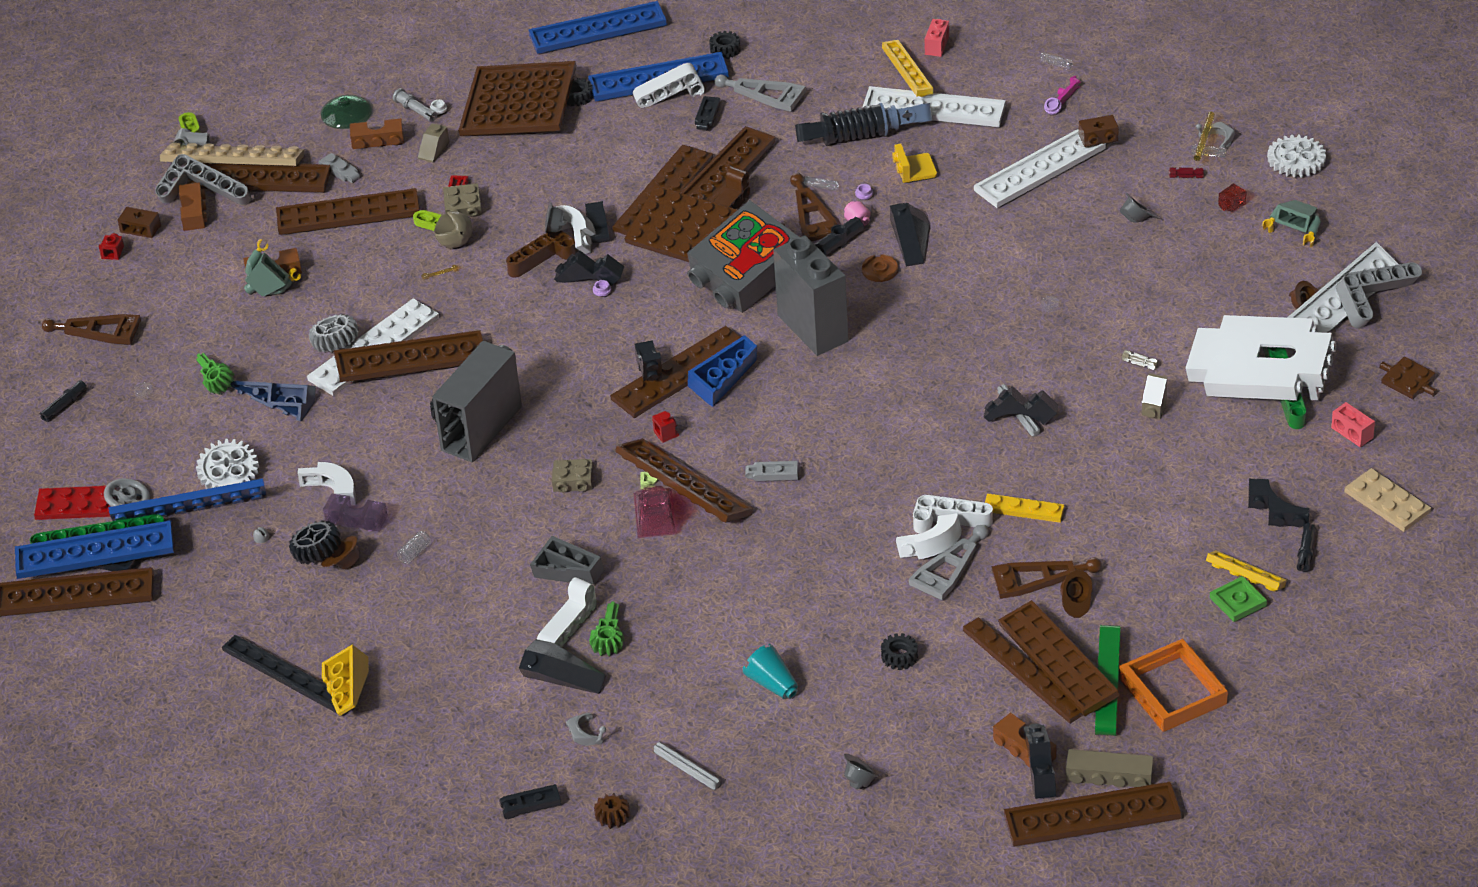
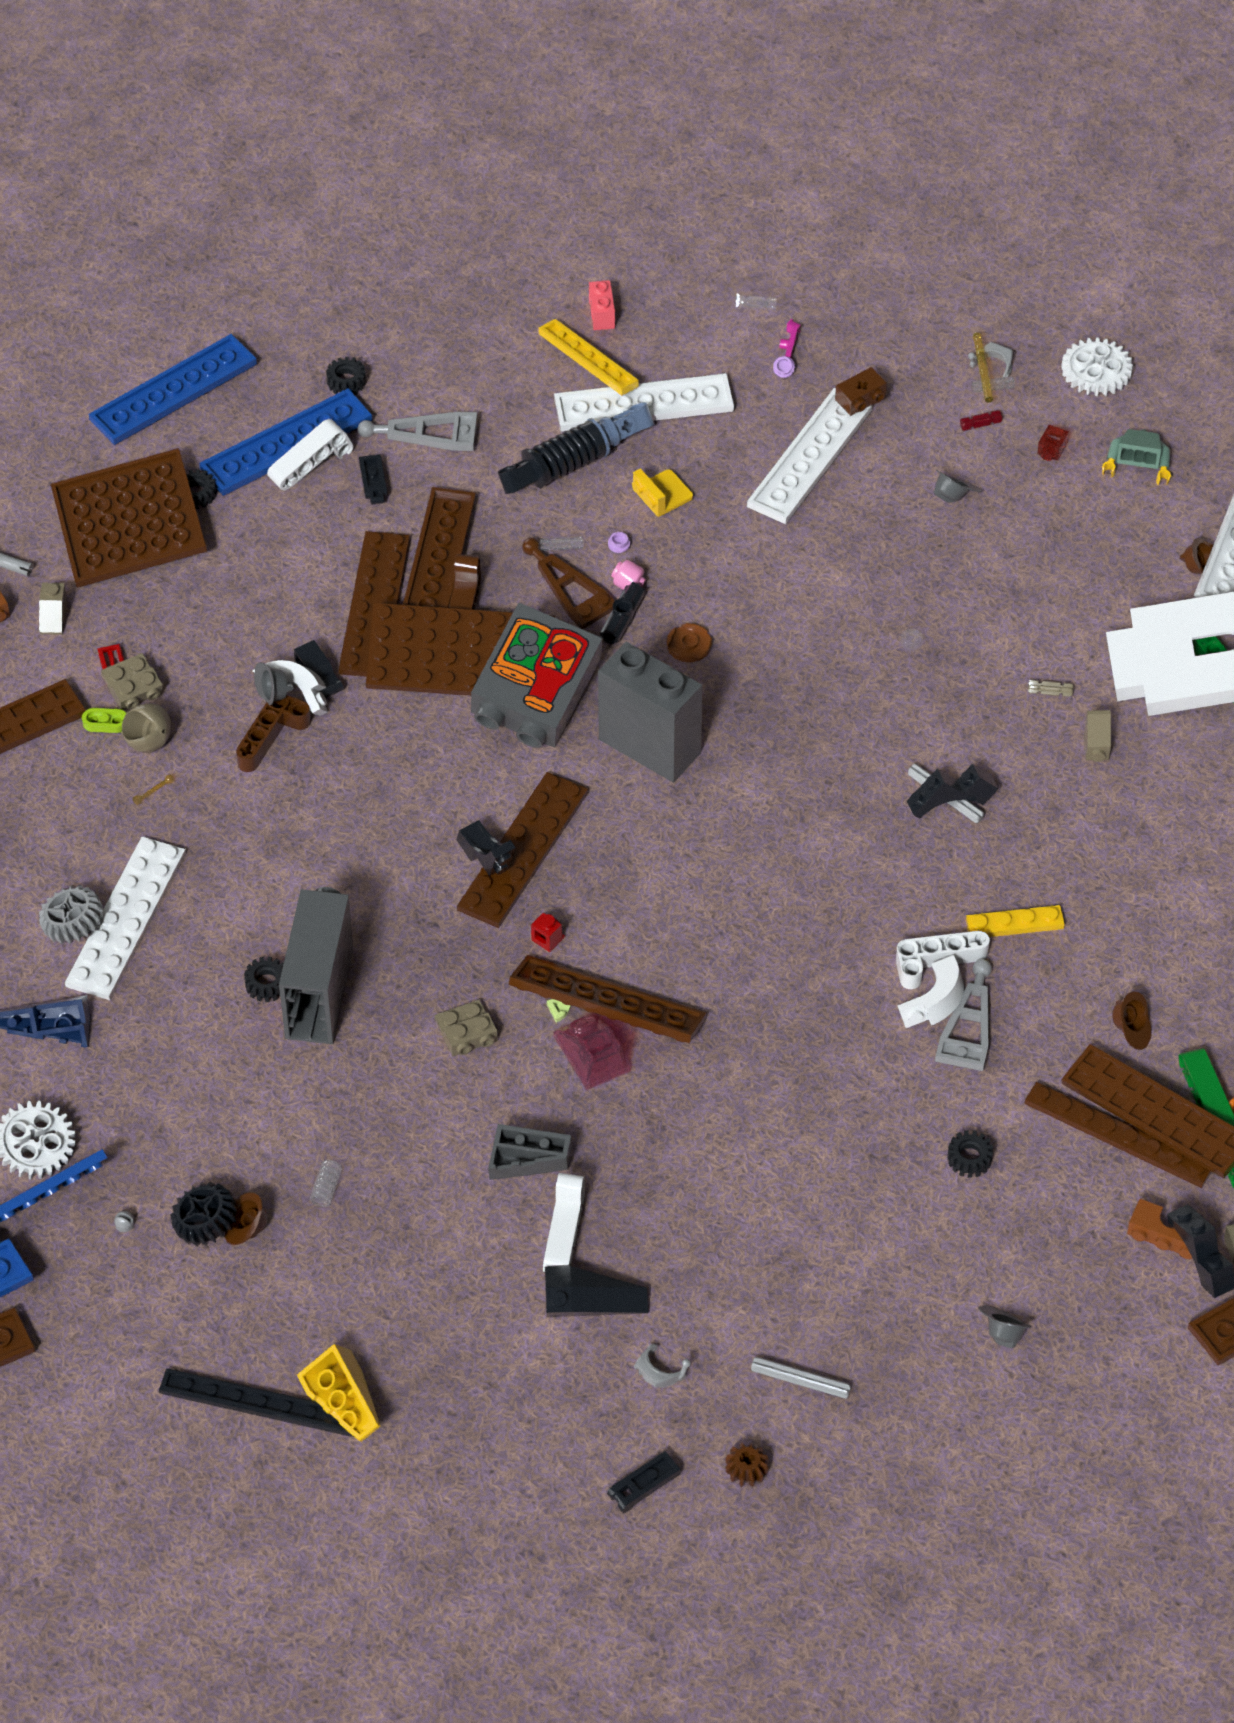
camera: 25 degrees left, 10 degrees up
(331, 476) = (178, 1116): white arch -> none
(369, 517) = (209, 1162): clear purple arch -> none
(405, 356) = (184, 920): reddish brown plate -> none
(438, 106) = (29, 553): white plate -> none
(583, 267) = (336, 739): black arch -> none
(601, 288) = (369, 760): lavender plate -> none
(607, 635) = (620, 1227): bright green gear -> none
(722, 370) = (576, 841): blue wedge -> none
(771, 672) = (844, 1228): teal cone -> none
(772, 471) = (703, 955): light grey hinge -> none
(911, 232) = (702, 585): black wedge -> none
(1007, 583) = (1047, 1029): reddish brown plate -> none

